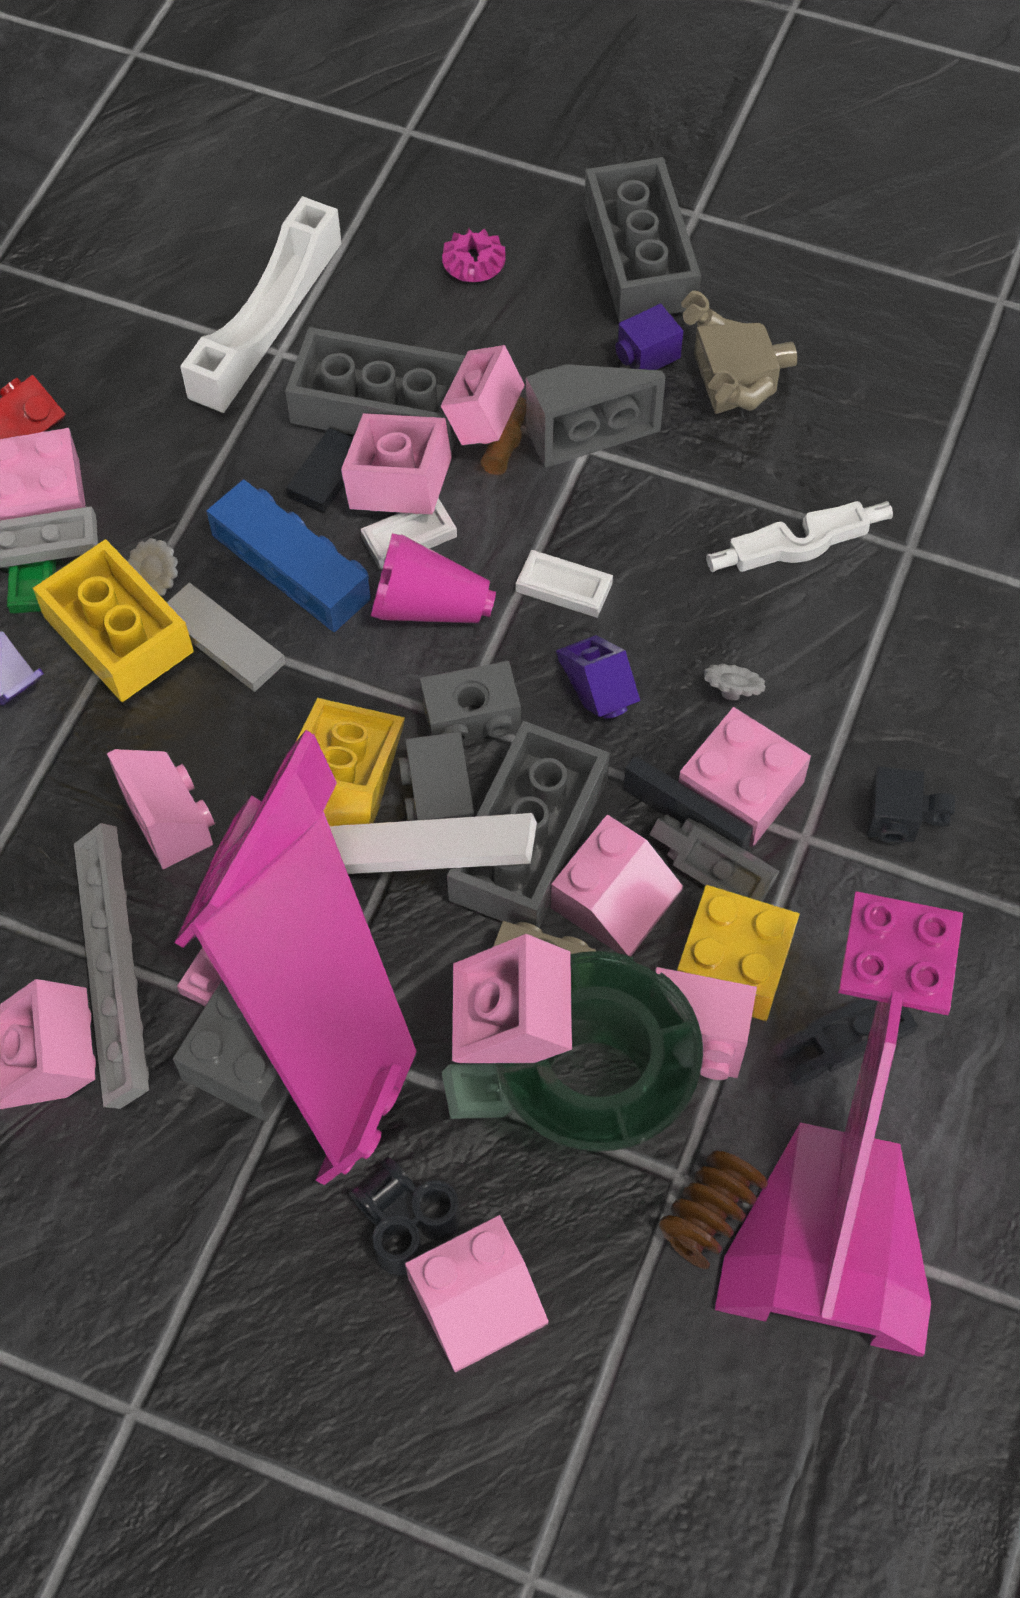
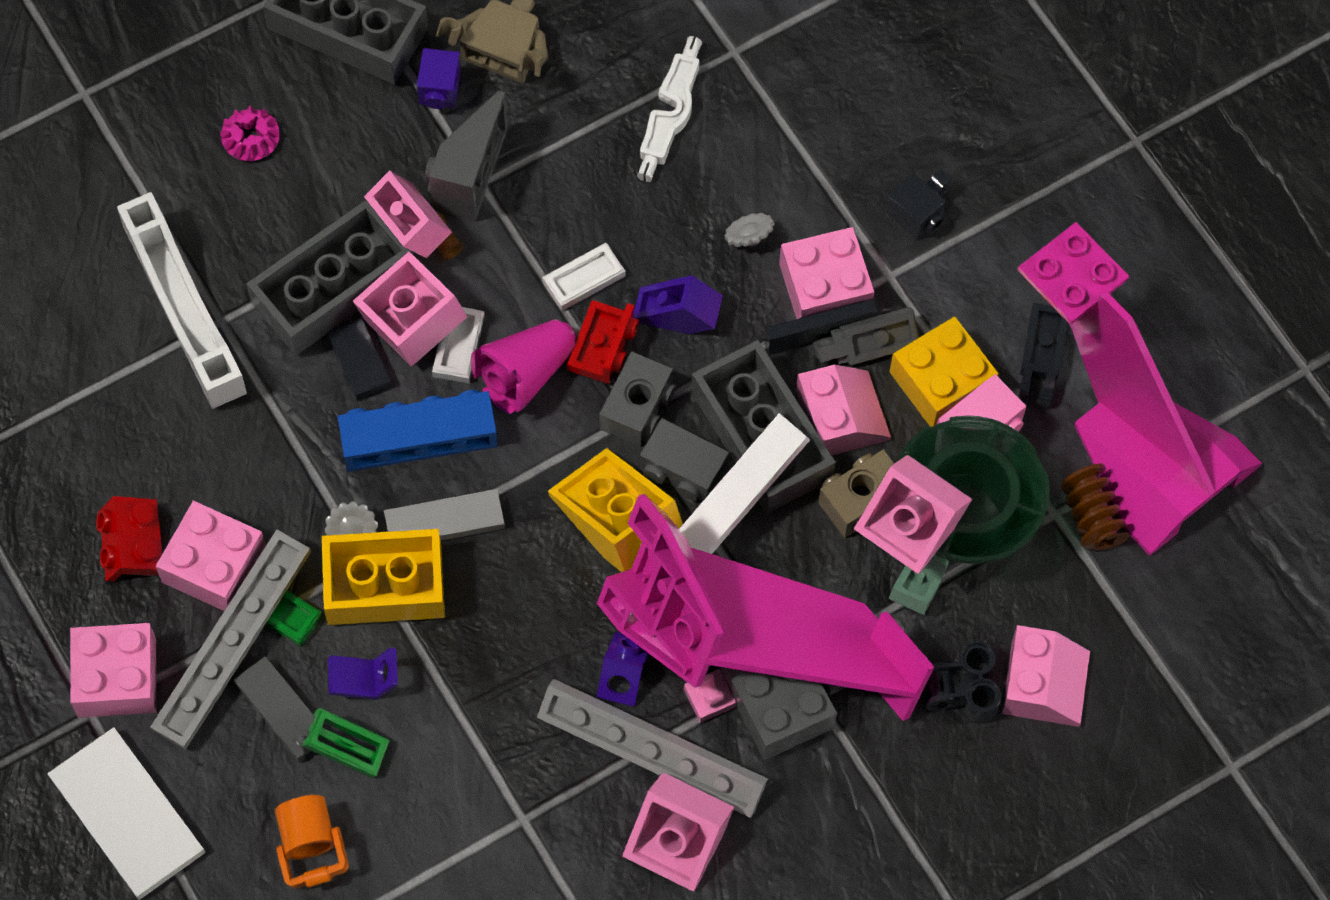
camera: 55 degrees left, 5 degrees up
(162, 804) = (561, 641): bright pink slope -> none
(181, 876) = (626, 660): none -> dark purple bracket
(508, 635) = (601, 341): none -> red bracket

